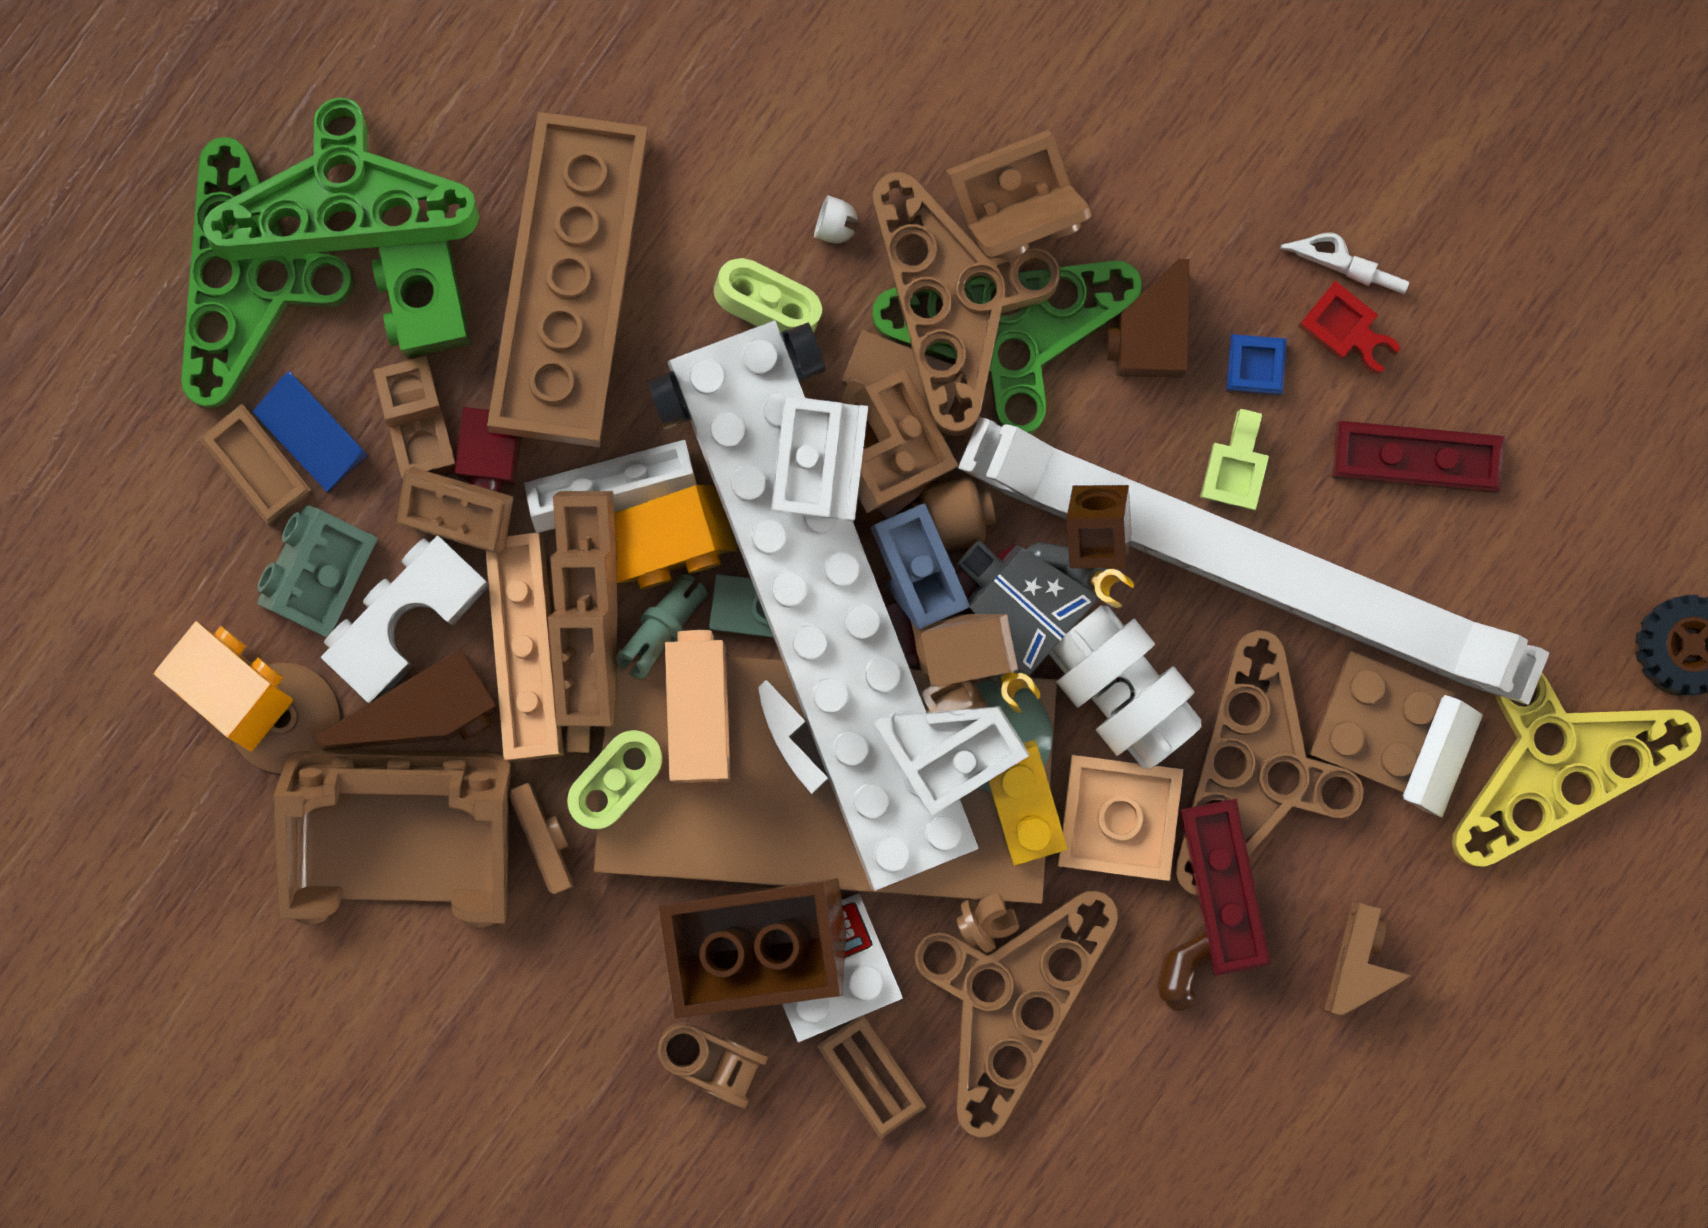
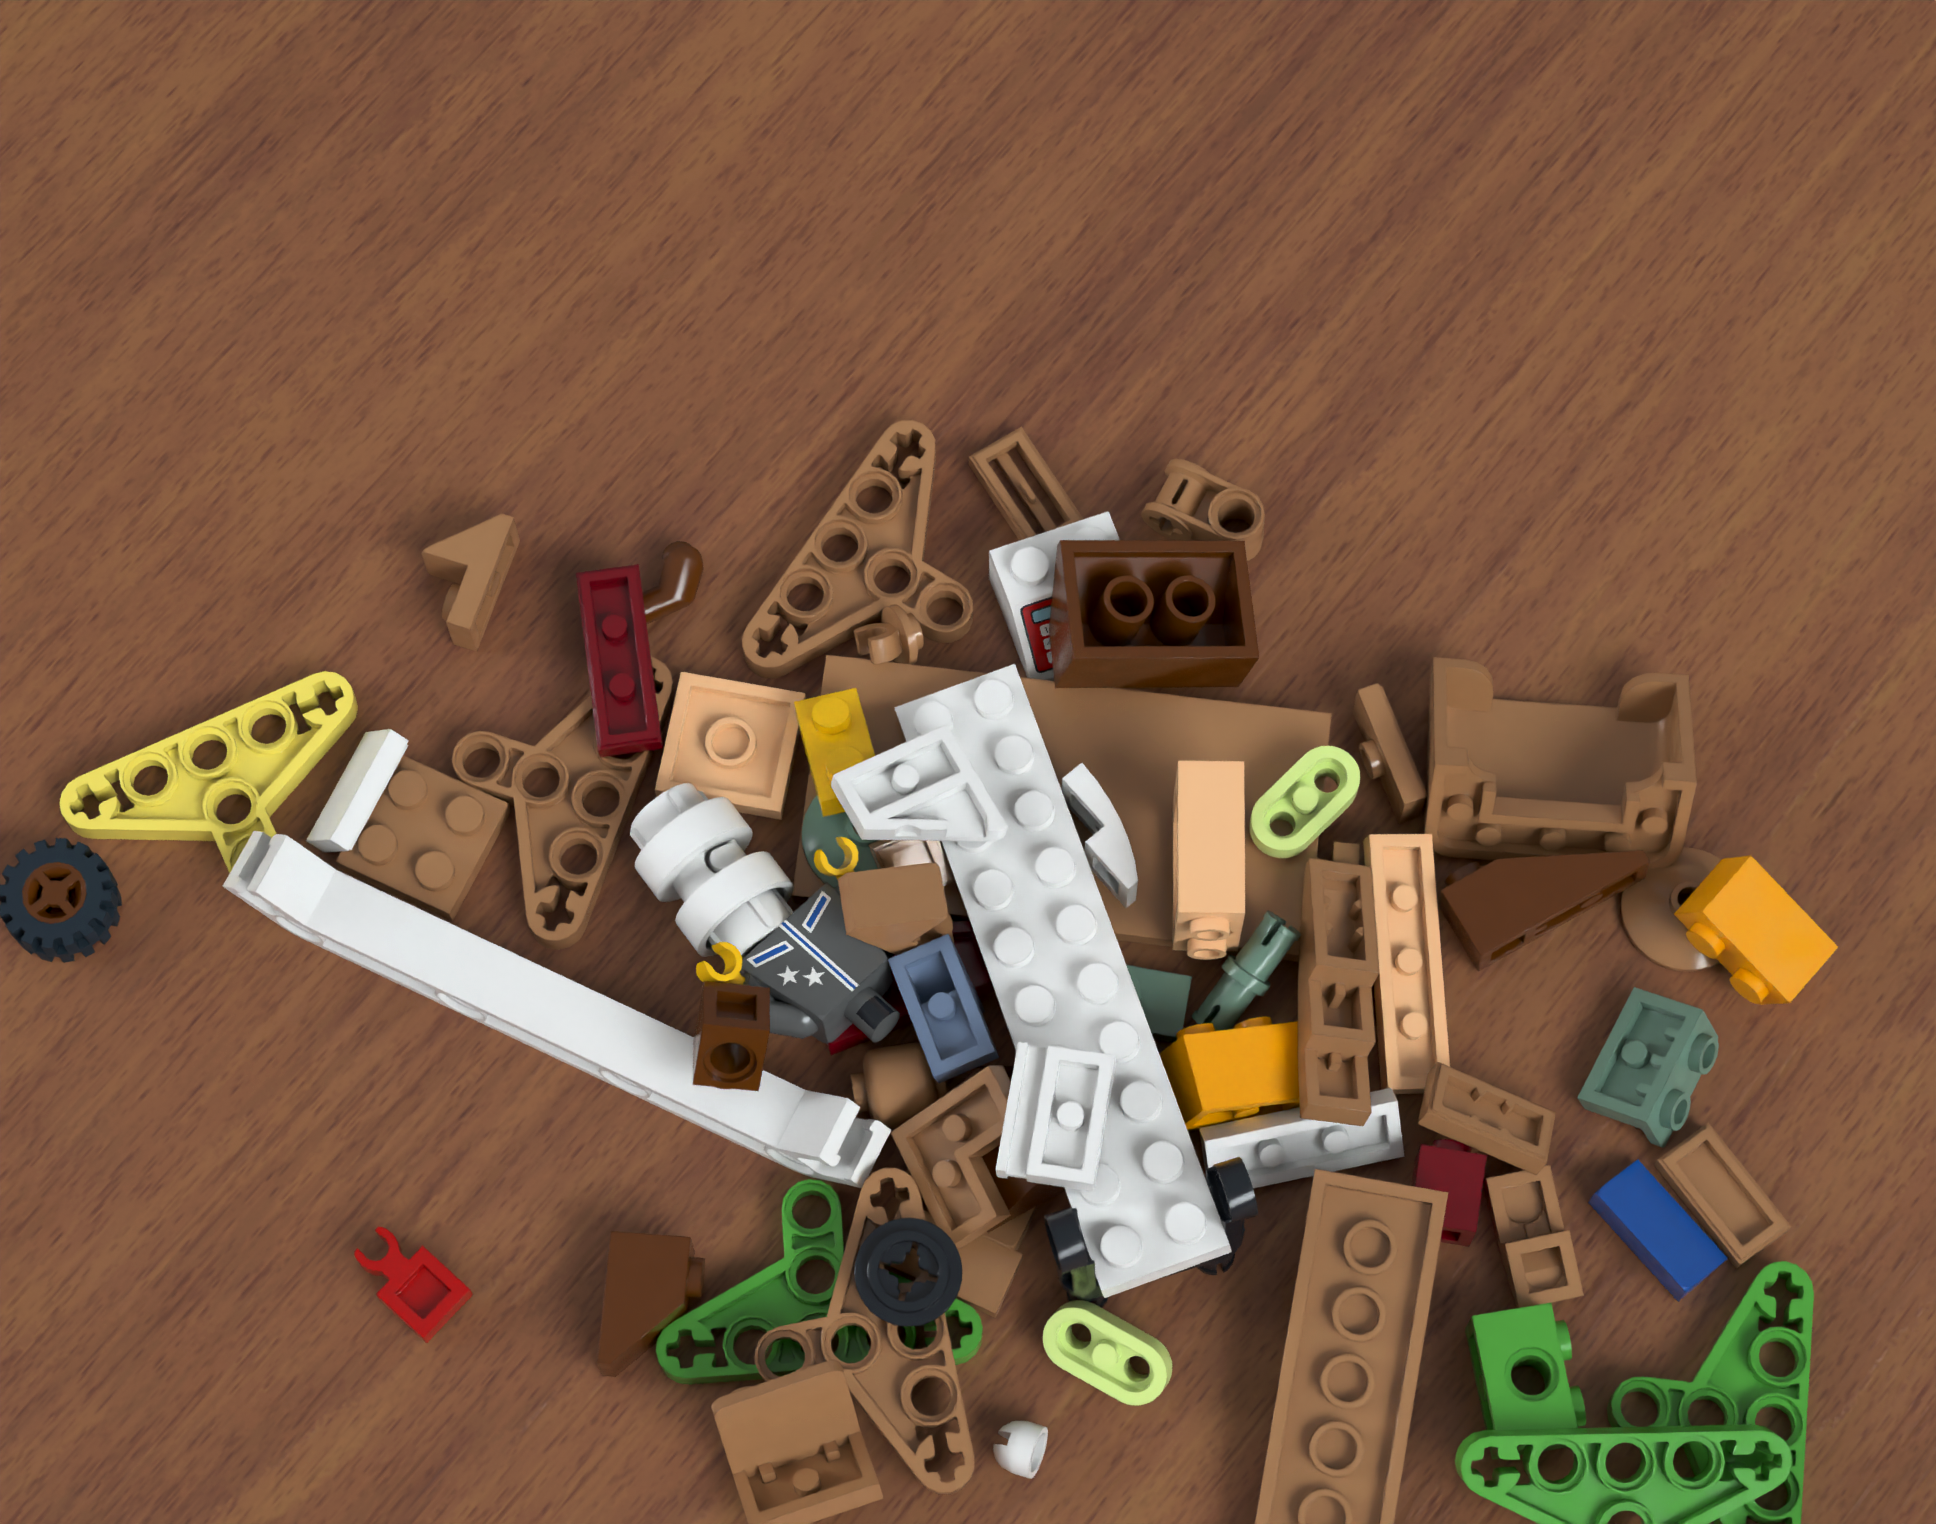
camera: 175 degrees left, 15 degrees down
(367, 649) = (1588, 965): white arch -> none
(920, 319) = (890, 1245): none -> black gear
(1235, 471) = (562, 1125): yellowish green plate -> none
(1256, 364) = (527, 1251): blue tile -> none
(1354, 267) = (412, 1369): white hand -> none
(1418, 456) = (346, 1134): dark red tile -> none

